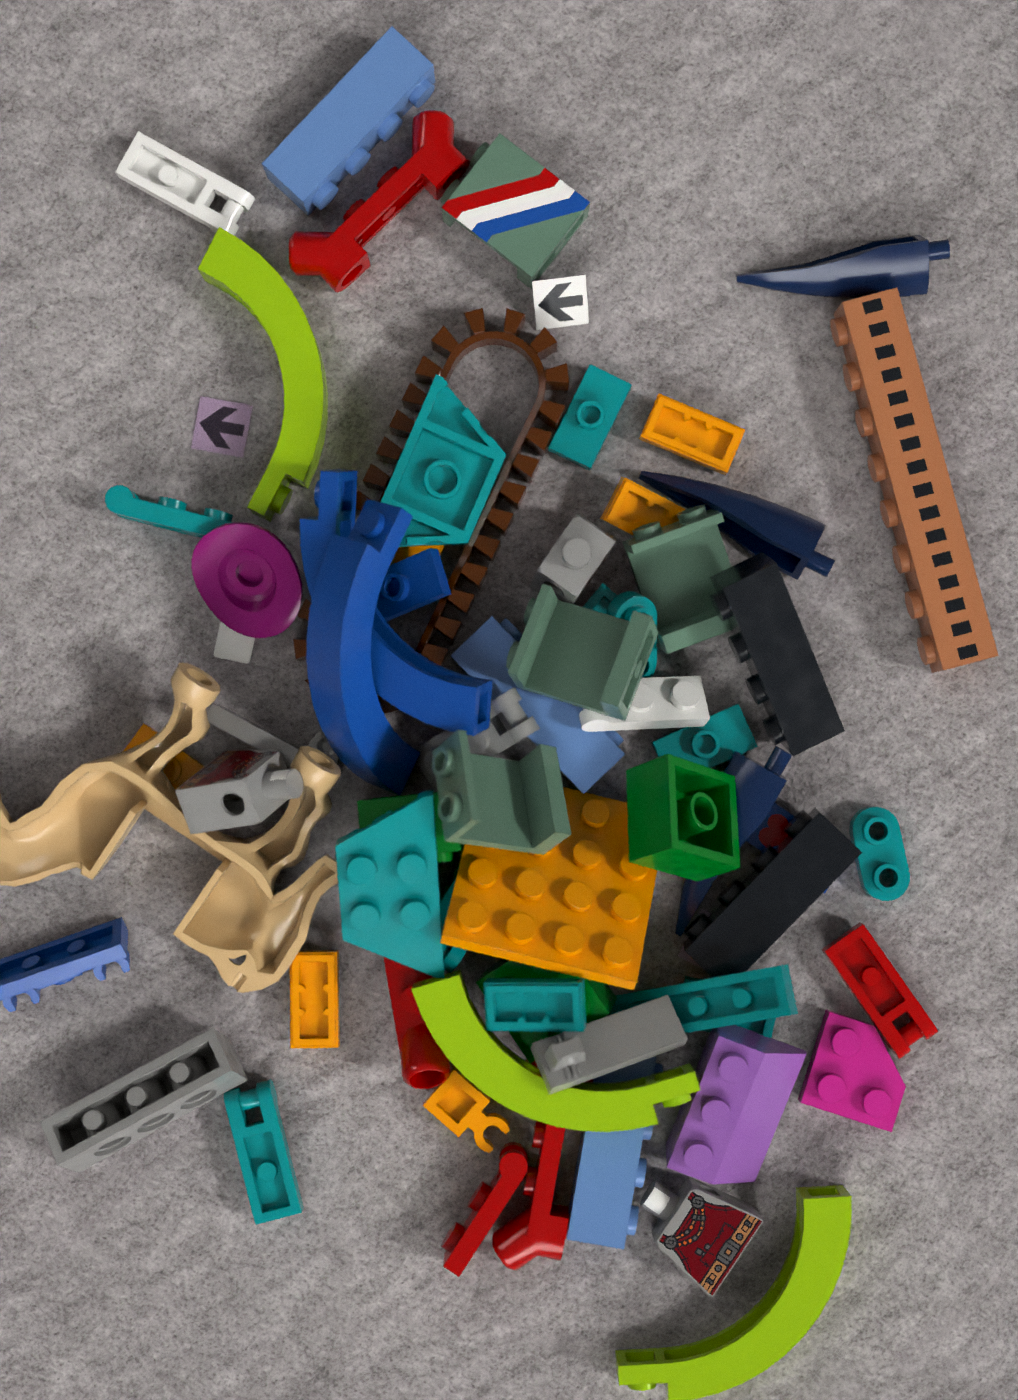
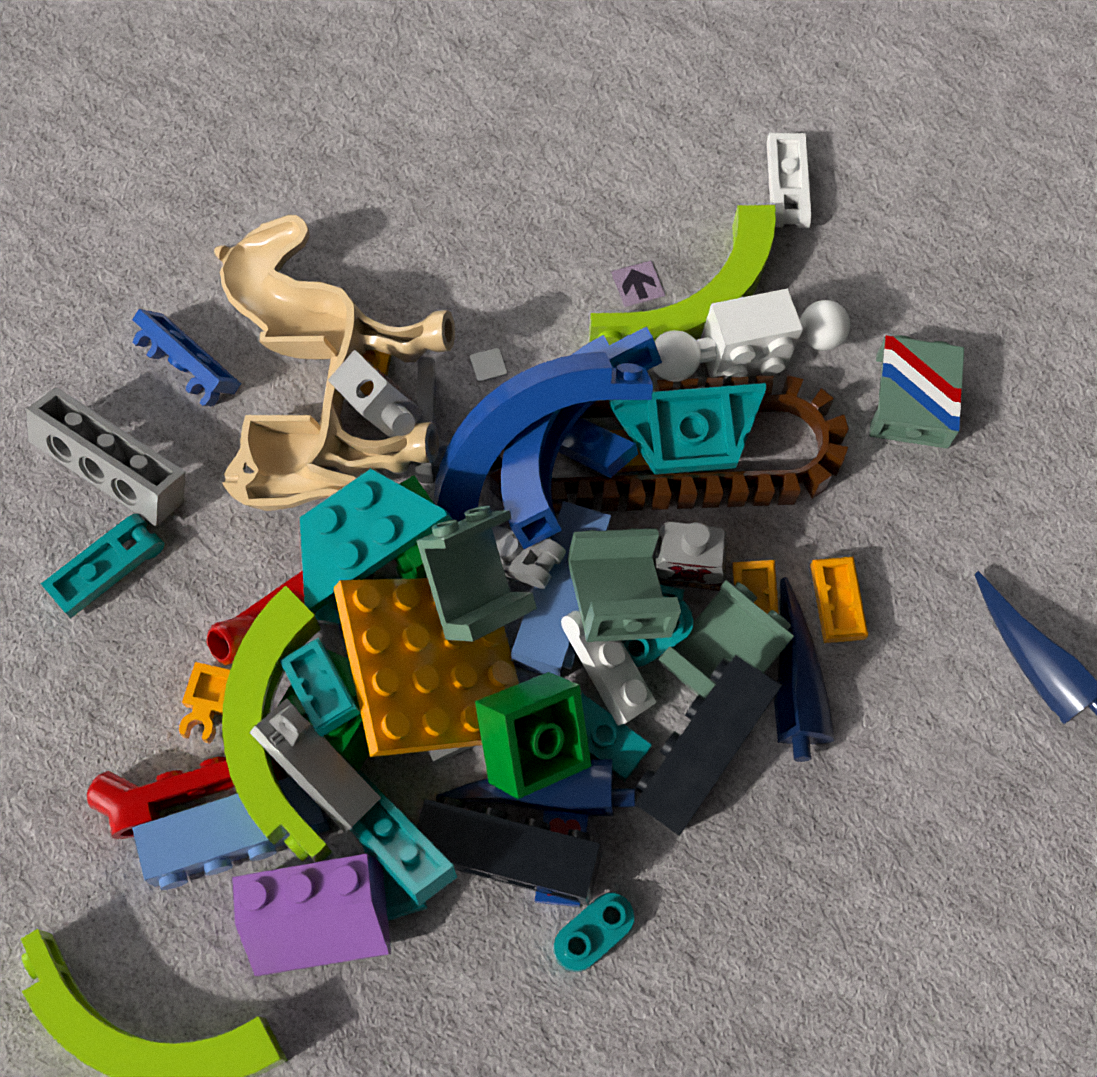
camera: 60 degrees right, 20 degrees down
(167, 514) = (555, 278): teal plate -> none
(248, 579) = (539, 332): magenta hat -> none
(314, 999) = (243, 543): light orange plate -> none
(340, 254) = (875, 308): red plate -> none
(351, 122) = (903, 256): medium blue brick -> none
(368, 352) = (751, 337): none -> white brick
(486, 1207) = (133, 755): red plate -> none
(560, 302) = (873, 455): white sticker -> none
(589, 417) = (803, 521): teal plate -> none
(701, 1229) = (190, 945): torso -> none
(852, 1073) = (391, 1013): dark pink plate -> none
(878, 988) = (476, 994): red plate -> none
(913, 481) = (909, 794): nougat brick -> none

